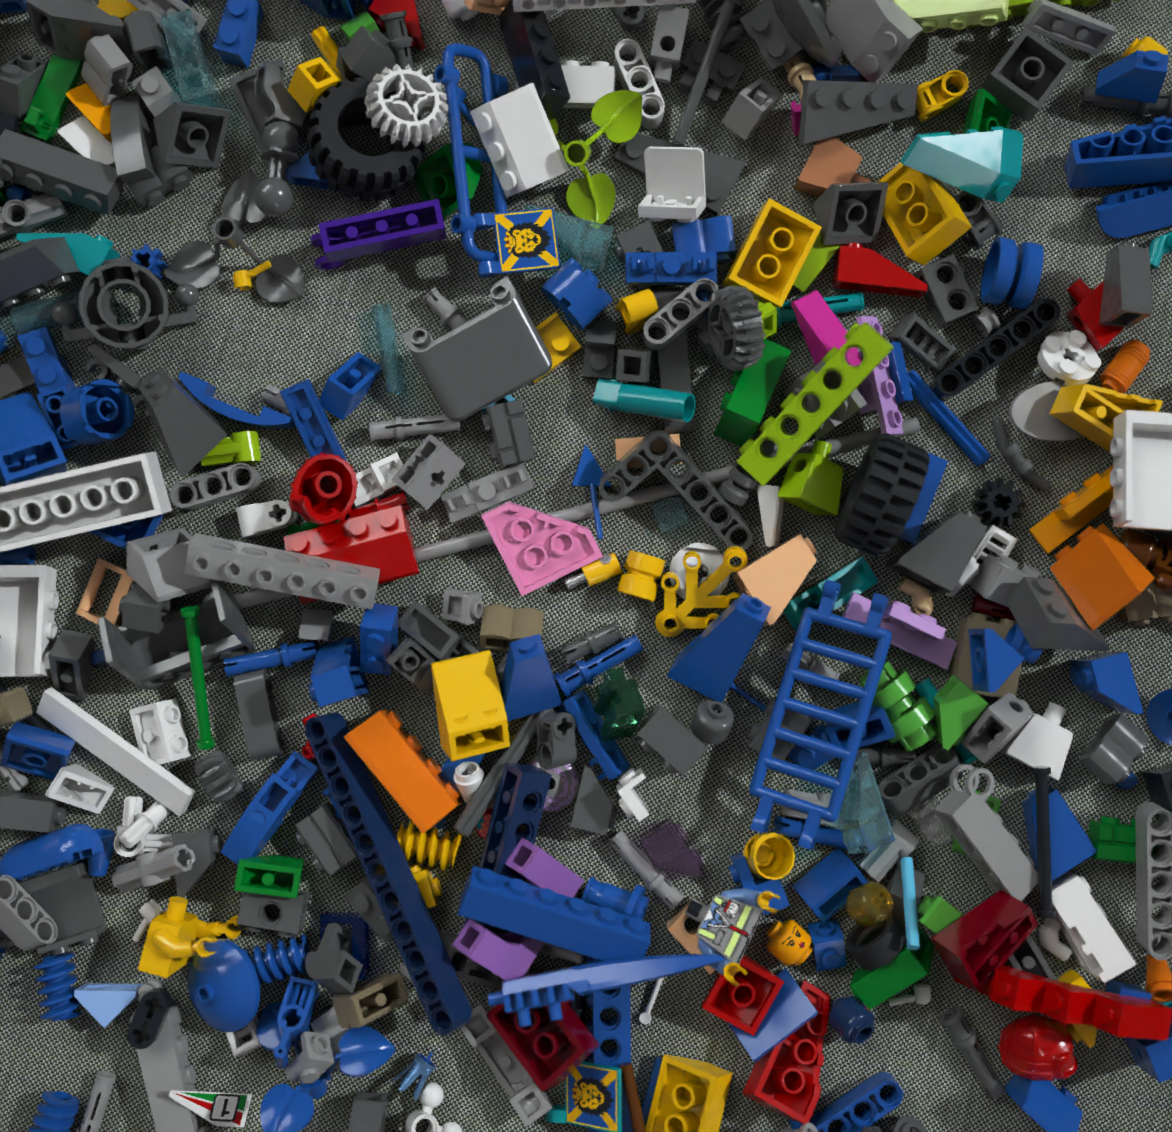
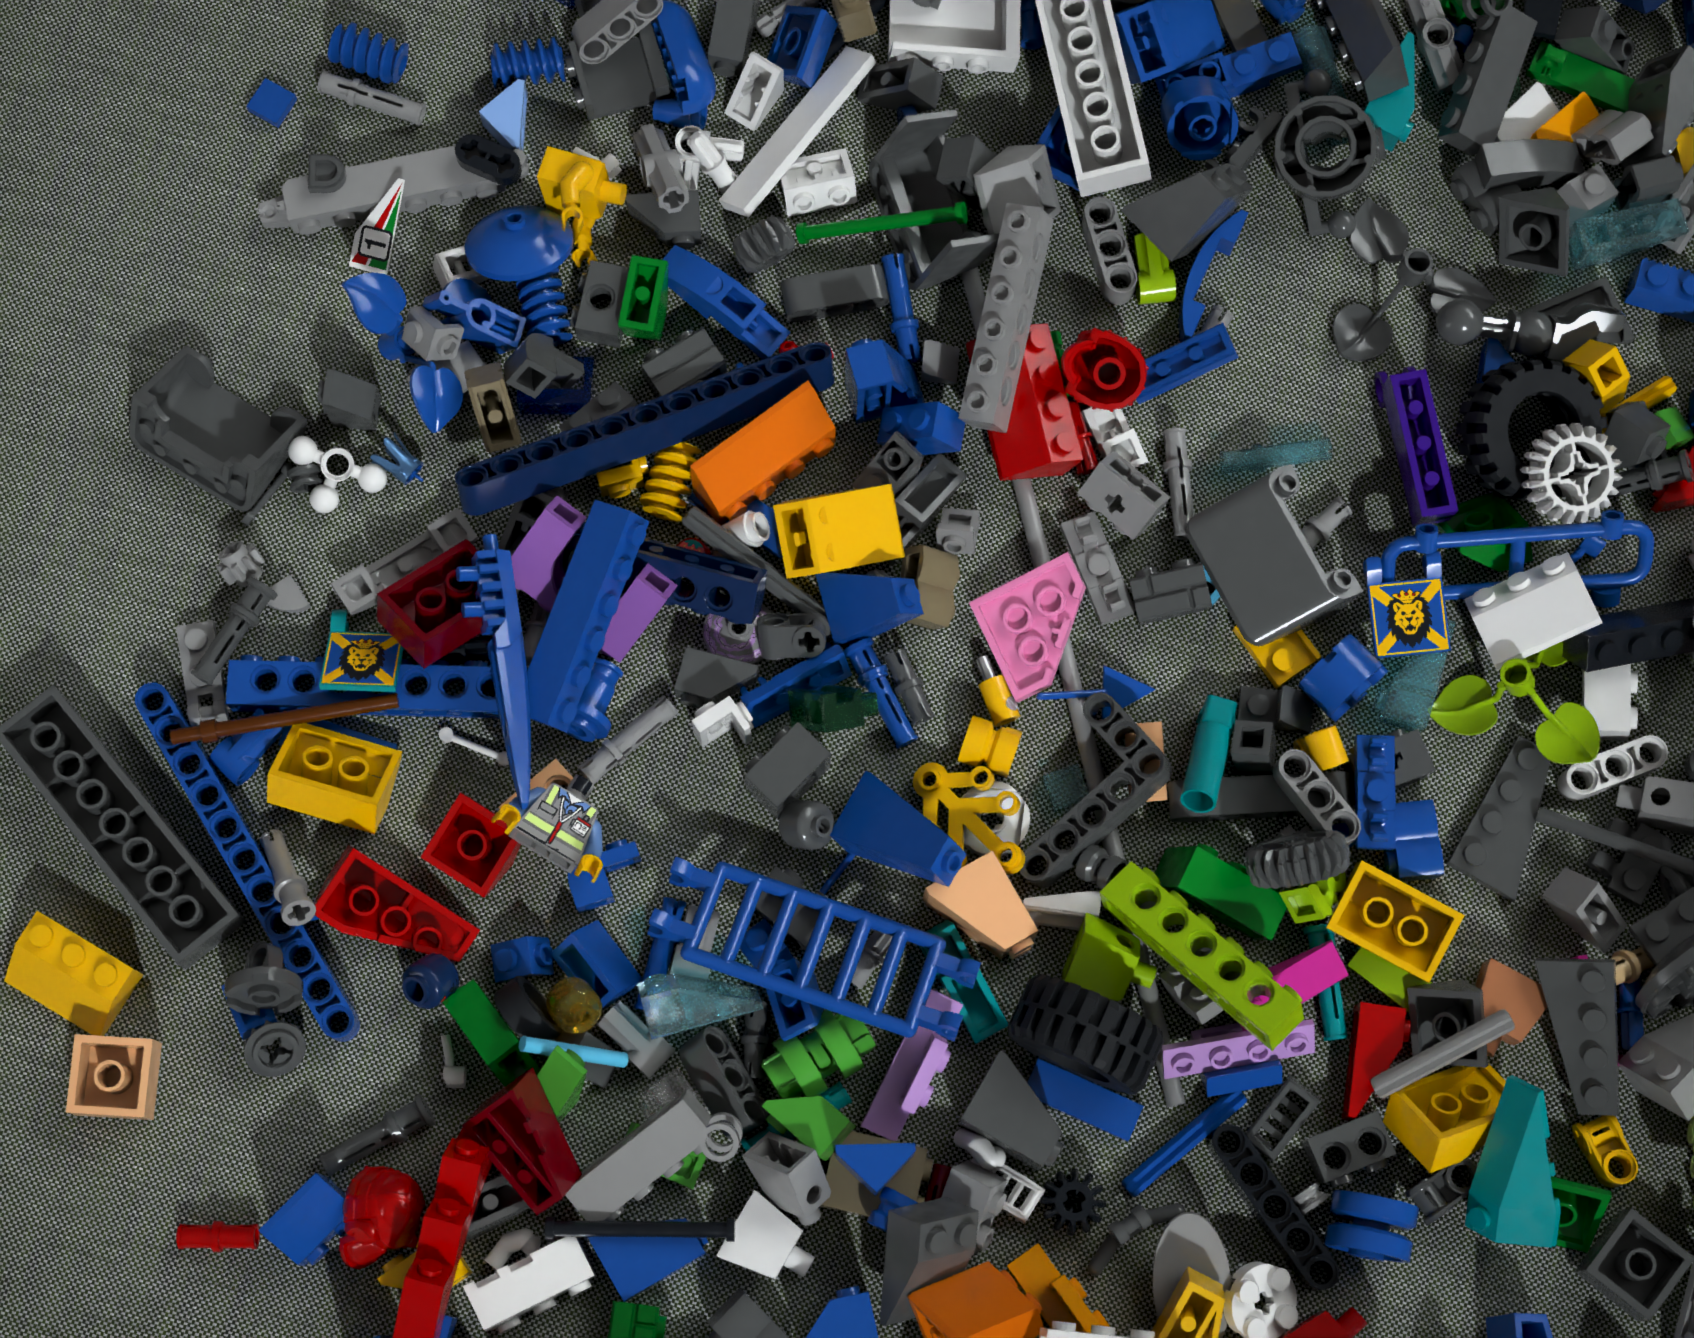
camera: 85 degrees right, 10 degrees down
(93, 586) = (992, 112): light nougat tile -> none
(156, 265) = (1385, 186): blue gear -> none
(242, 278) = (1362, 288): yellow hand -> none
(262, 518) = (1070, 303): white piece -> none
(349, 385) = (1230, 407): blue slope -> none
(669, 851) = (650, 768): clear purple slope -> none
(673, 184) = (1481, 803): white bracket -> none
(770, 861) = (637, 877): yellow helmet -> none
(785, 1016) = (441, 896): piece -> none
(788, 942) = (529, 909): light orange head -> none
(881, 215) = (1442, 1053): none -> light grey axle
(919, 594) = (954, 1098): tan arm -> none

